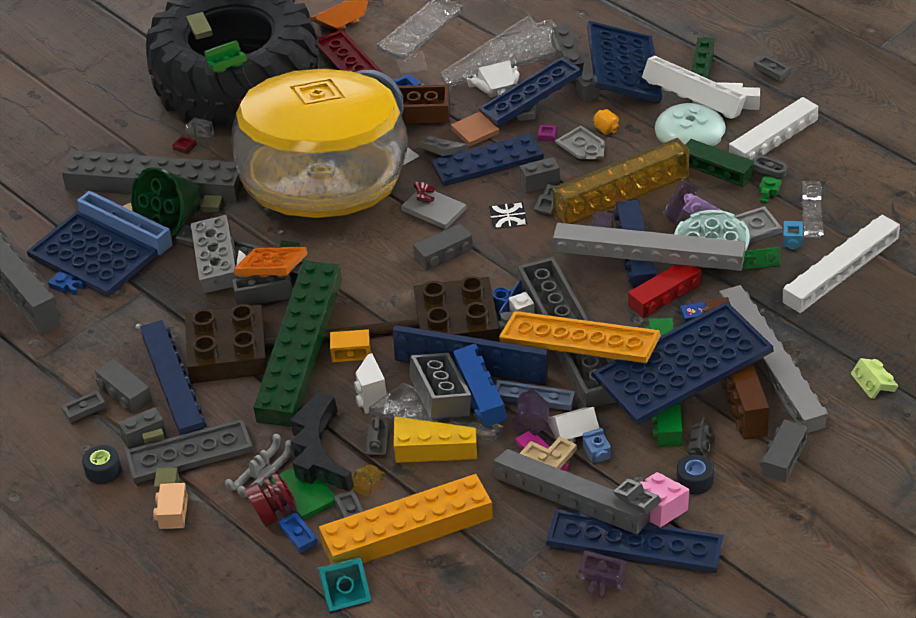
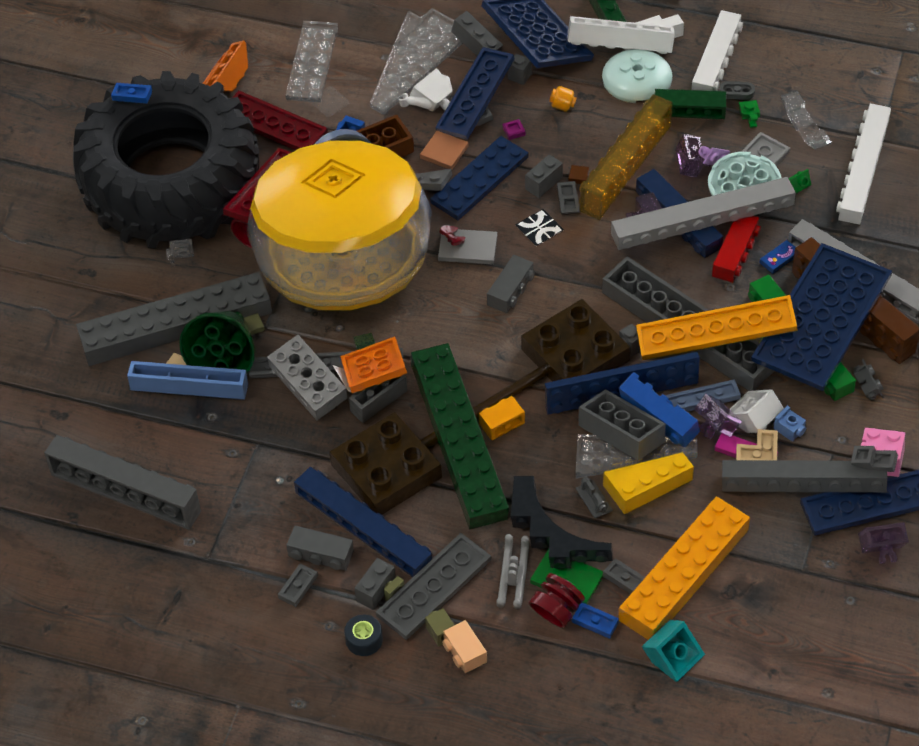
camera: 30 degrees left, 10 degrees up
(64, 282) = (170, 466): blue plate -> none
(92, 253) = (176, 424): dark blue plate -> none
(184, 144) = (173, 272): dark red tile -> none
(199, 25) = (135, 145): olive tile -> none
(224, 57) = (194, 171): green bracket -> none
(365, 478) = (618, 538): clear yellow bracket -> none
(369, 383) = (559, 450): white slope -> none
(502, 295) = (606, 312): blue piece -> none
(521, 303) = (627, 315): white brick -> none
(582, 144) = (555, 129): light grey tile -> none
(695, 473) = (889, 414): black wheel -> none
(793, 239) = (807, 154): dark azure brick -> none

